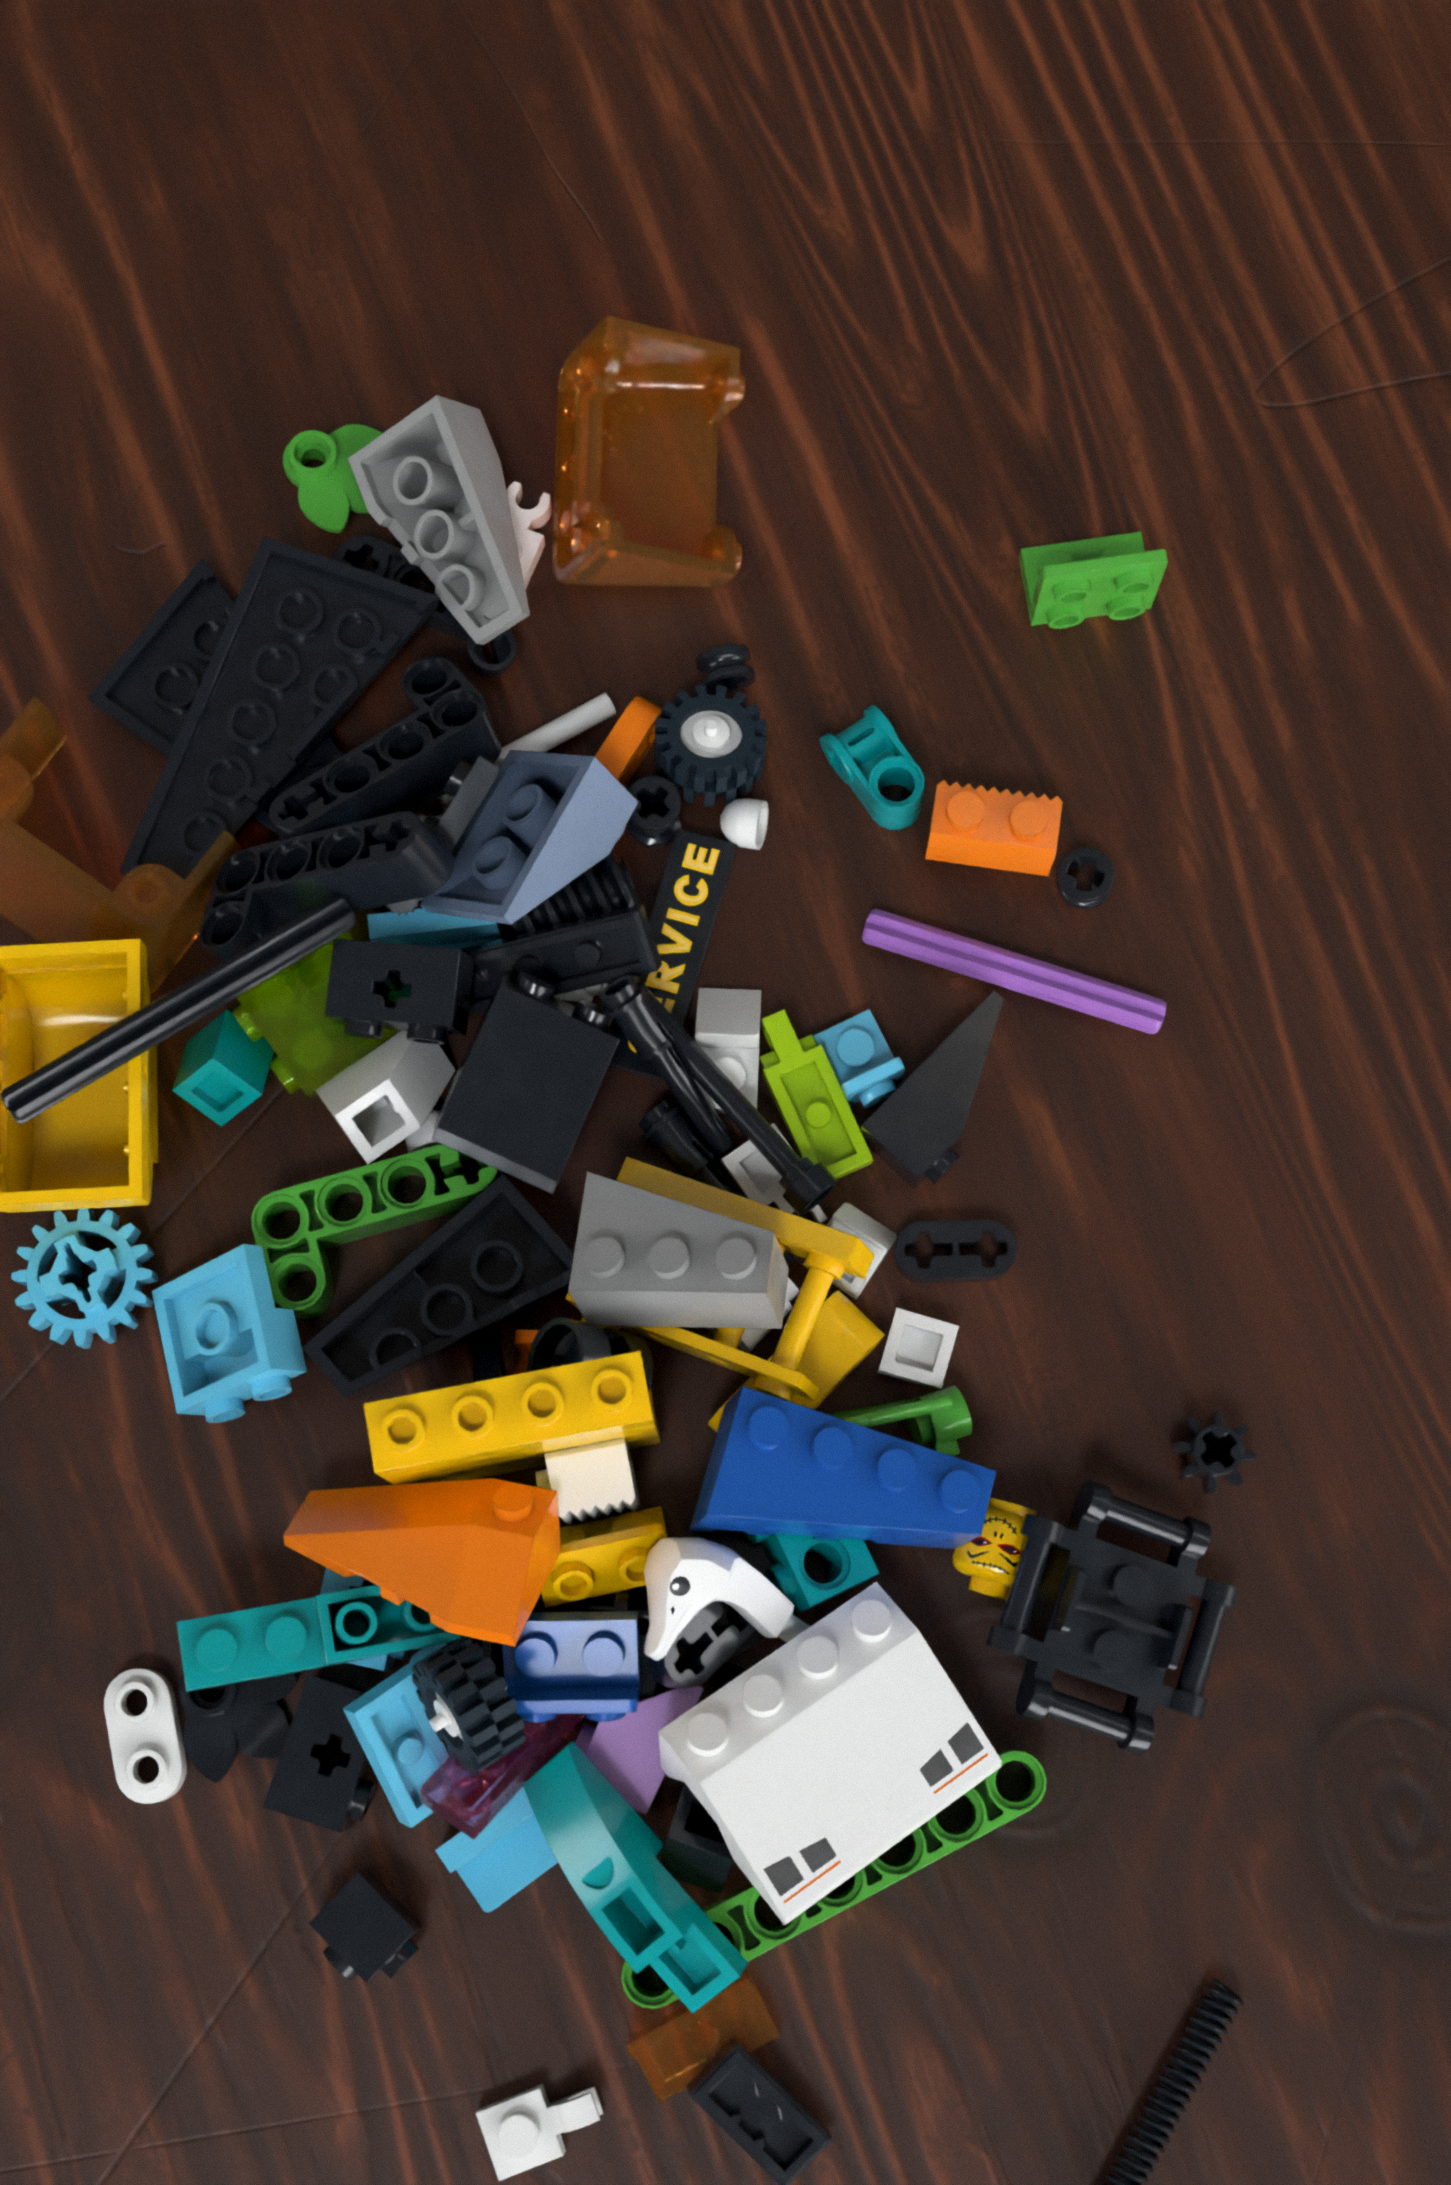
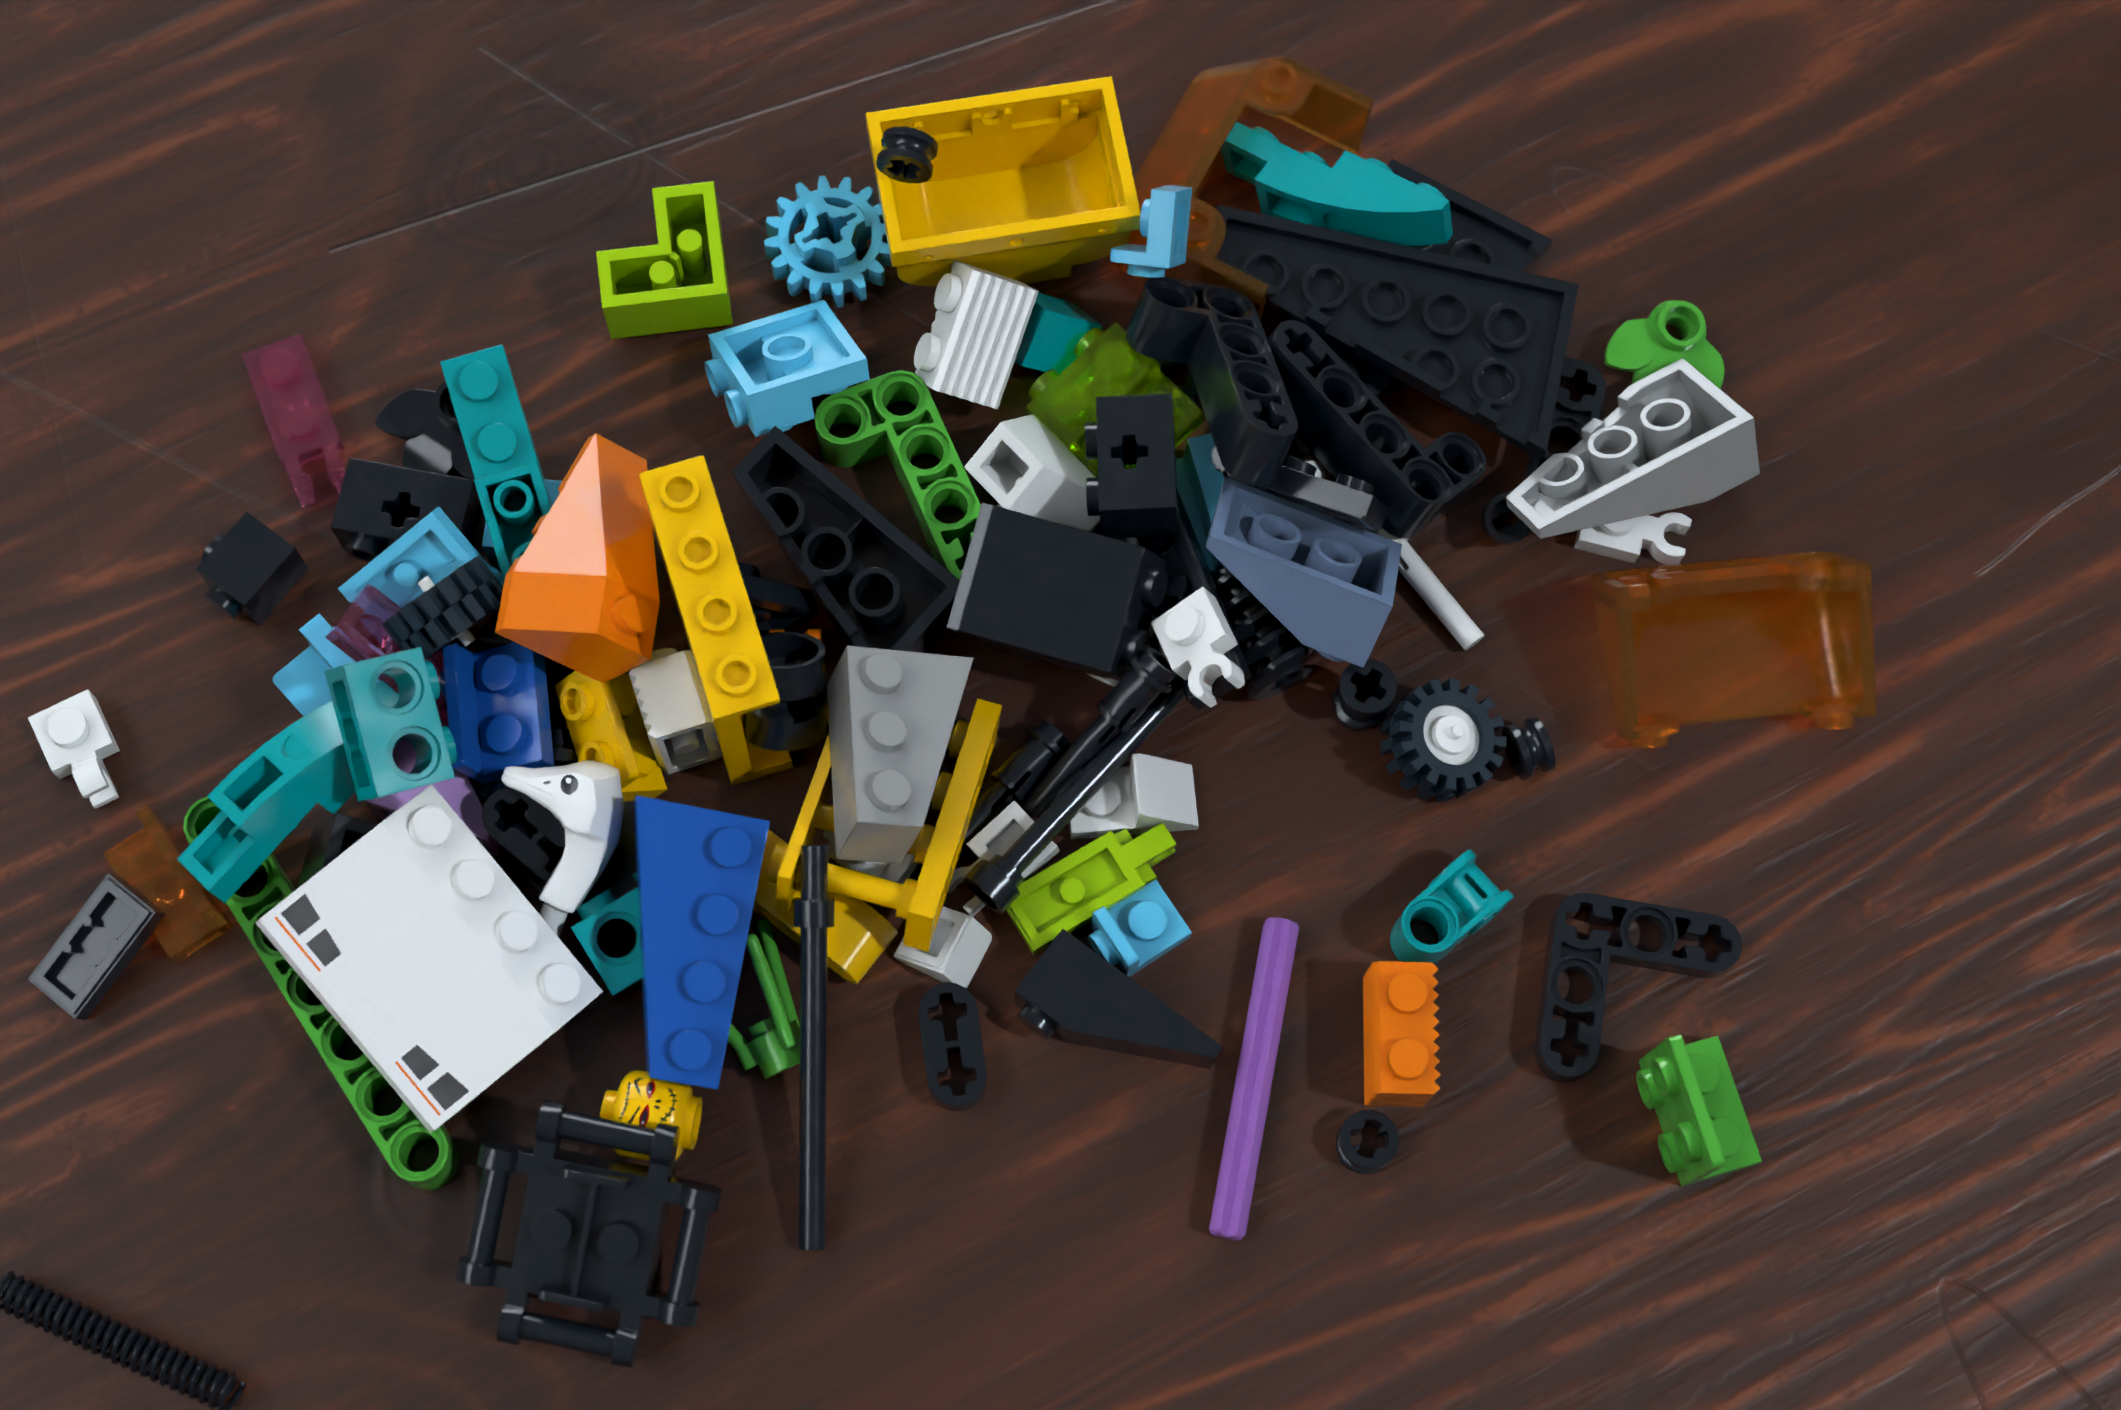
camera: 75 degrees right, 5 degrees down
(39, 1164) = (907, 155): none -> black bush
(108, 1434) = (674, 282): none -> lime brick
(135, 738) = (1349, 197): none -> teal slope
(149, 1734) = (414, 359): white plate -> none
(150, 918) = (1166, 226): none -> medium azure bracket
(177, 1009) = (1077, 259): black axle -> none
(188, 1869) = (296, 412): none -> clear pink hinge
(224, 1135) = (974, 334): none -> white brick
(599, 1782) = (373, 728): none -> teal brick
(600, 952) = (1194, 642): none -> white plate
(630, 739) = (1424, 656): orange beam -> none
(682, 930) = (1252, 741): black tile -> none
(745, 822) = (1369, 789): white hinge -> none
(836, 1358) = (814, 915): none -> black bar
(918, 1349) = (853, 1018): white plate -> none
(933, 646) = (1593, 958): none -> black beam
(1230, 1457) = (773, 1309): black gear -> none

